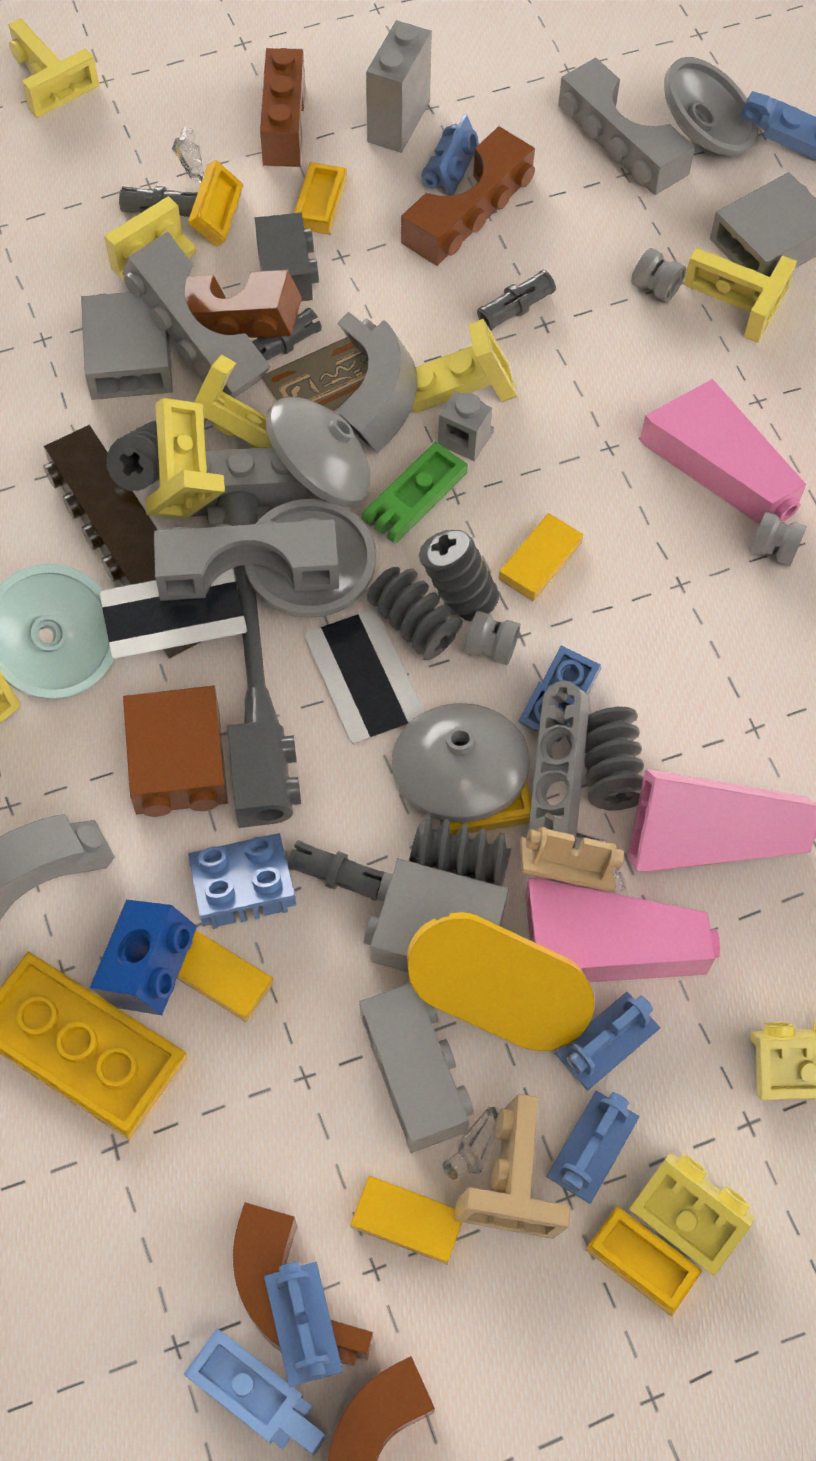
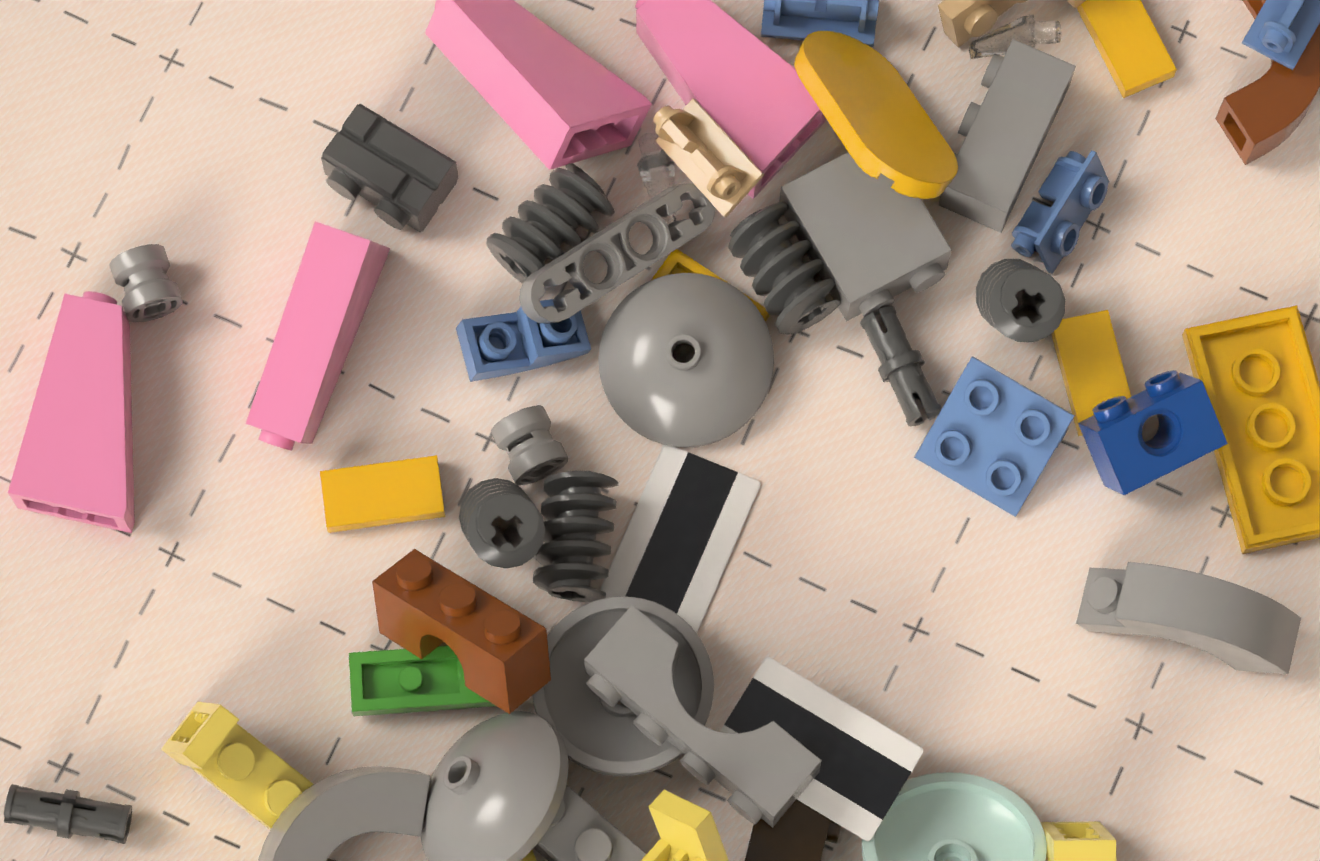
camera: 135 degrees left, 10 degrees up
(174, 751) = (941, 614): dark orange brick -> none
(258, 745) = (859, 542): dark grey bar -> none
(299, 954) = (1042, 300): none -> dark grey piece
(335, 1078) = (1076, 189): none -> medium blue hinge
(398, 496) = (497, 646): none -> dark orange arch
(469, 415) = (298, 701): light grey brick -> none
(669, 591) = (315, 334): none -> bright pink slope
(733, 706) = (388, 169): none -> dark grey brick

